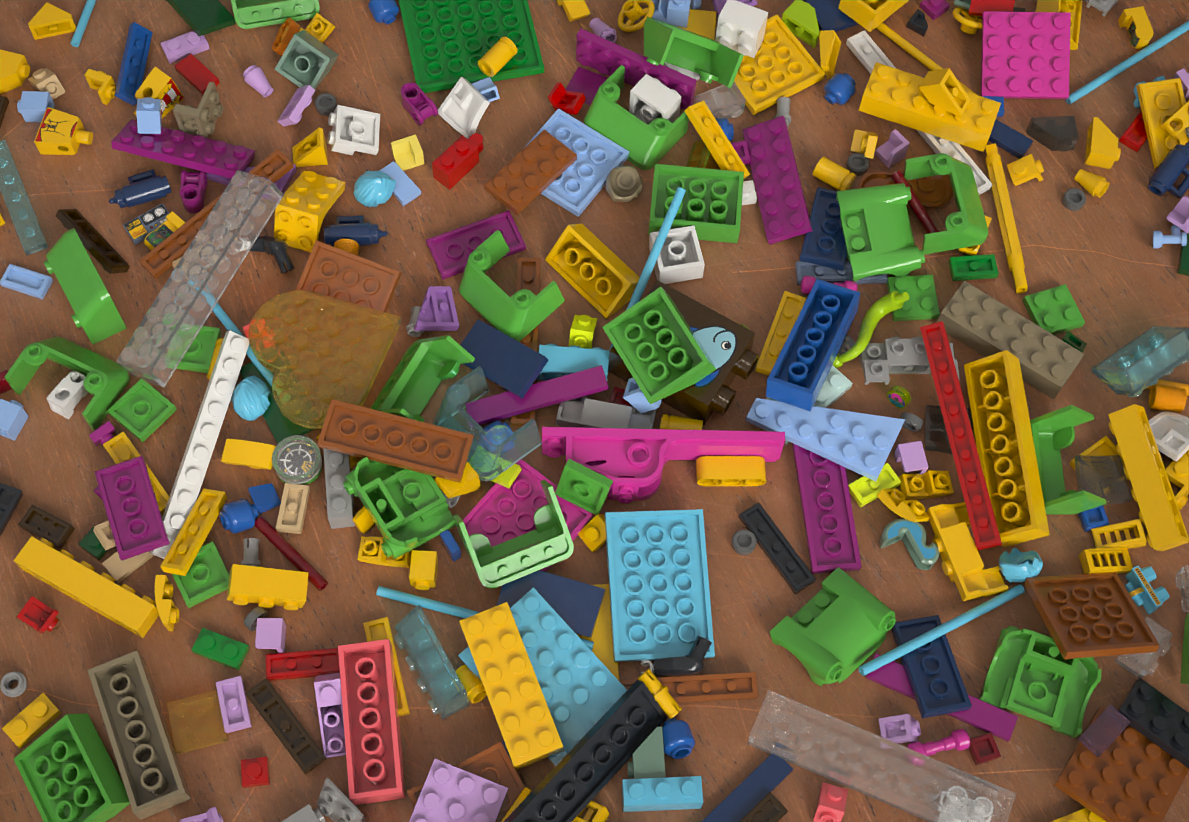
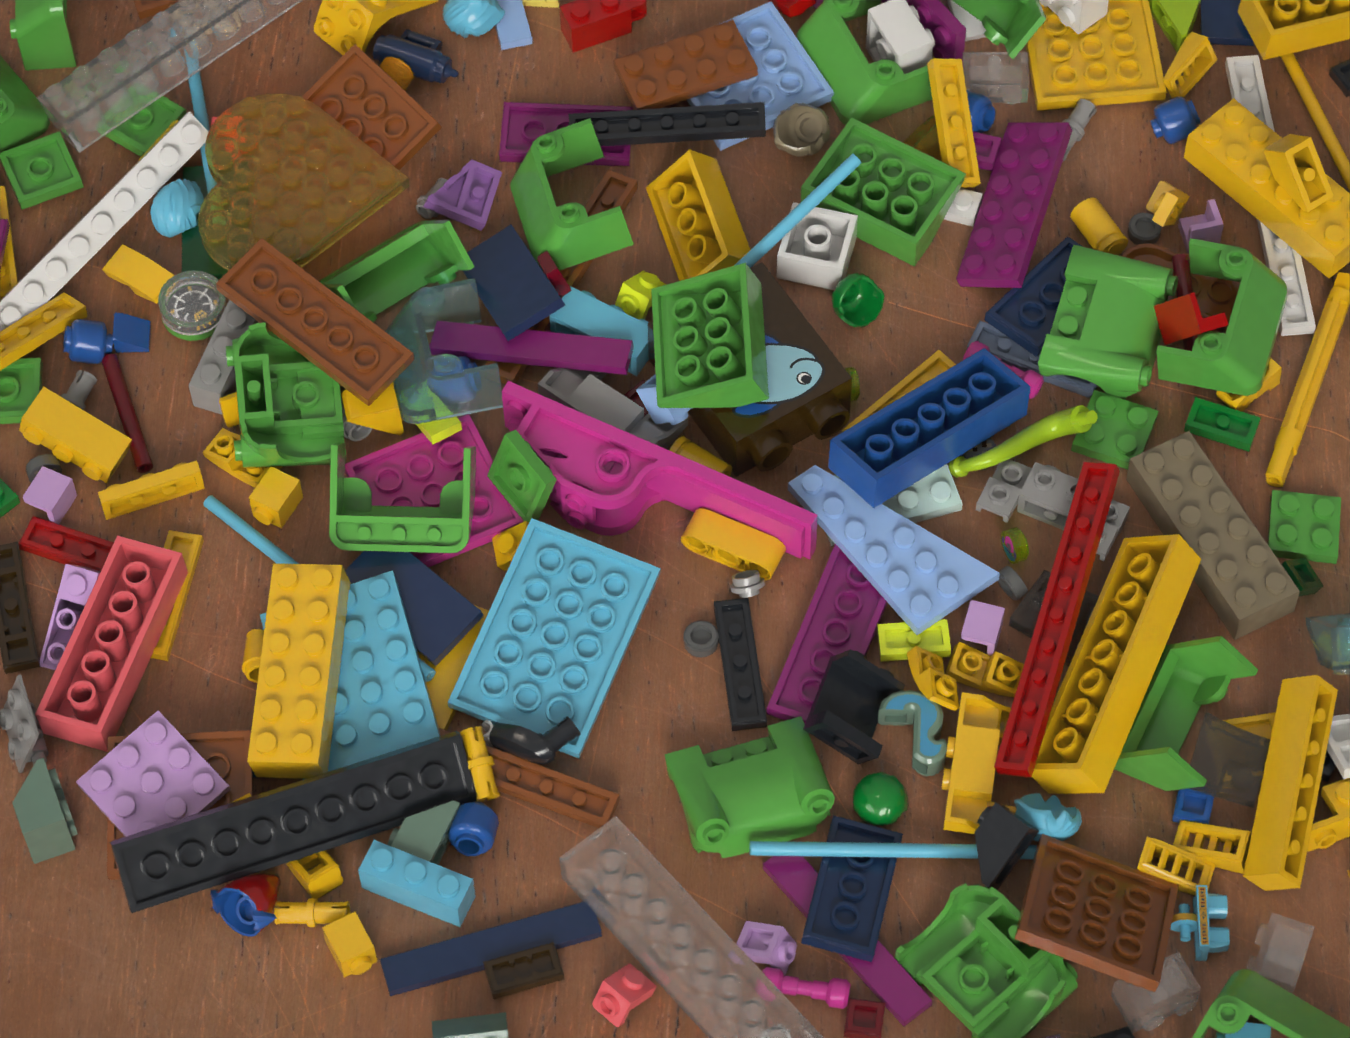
camera: 30 degrees right, 5 degrees down
(277, 248) = (305, 36): black arm -> none
(293, 508) = (158, 360): tan plate -> none
(337, 600) = (151, 489): none -> yellow plate
(431, 664) = (220, 609): clear light blue slope -> none
(450, 545) = (323, 482): blue tile -> none
(526, 340) = (553, 274): none -> dark red tile
(545, 211) = (676, 124): none -> black plate
(718, 279) = (857, 300): none -> green hair
(753, 493) = (747, 583): none -> light grey plate
(863, 548) = (849, 705): none -> black panel
(911, 598) = (880, 799): none -> green hair
(930, 211) = (1182, 319): none -> red panel
(1009, 594) = (1001, 843): none -> black slope

